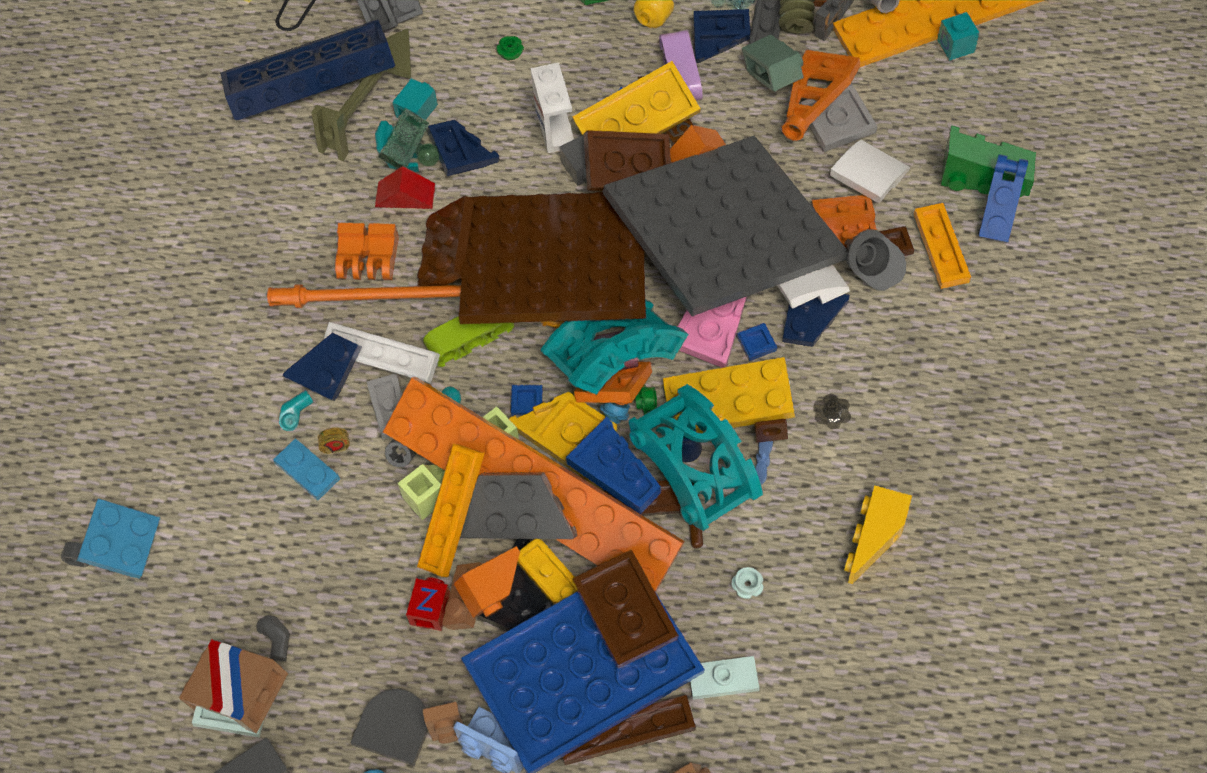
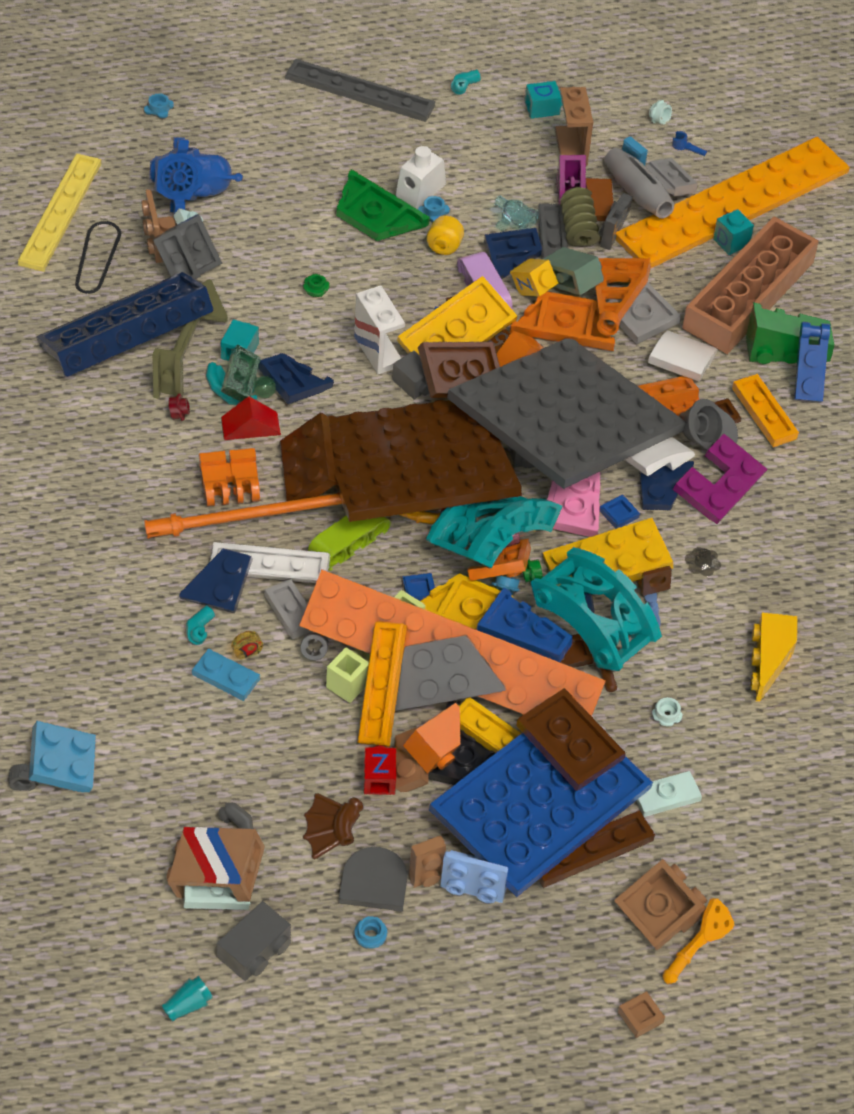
camera: 20 degrees left, 10 degrees down
(337, 166) = (179, 407): none -> dark red plate
(366, 654) = (330, 823): none -> reddish brown arm
(732, 65) = (534, 277): none -> yellow brick
(753, 114) = (562, 317): none -> orange wing
(865, 342) = (740, 476): none -> magenta plate
(961, 97) = (756, 274): none -> nougat brick

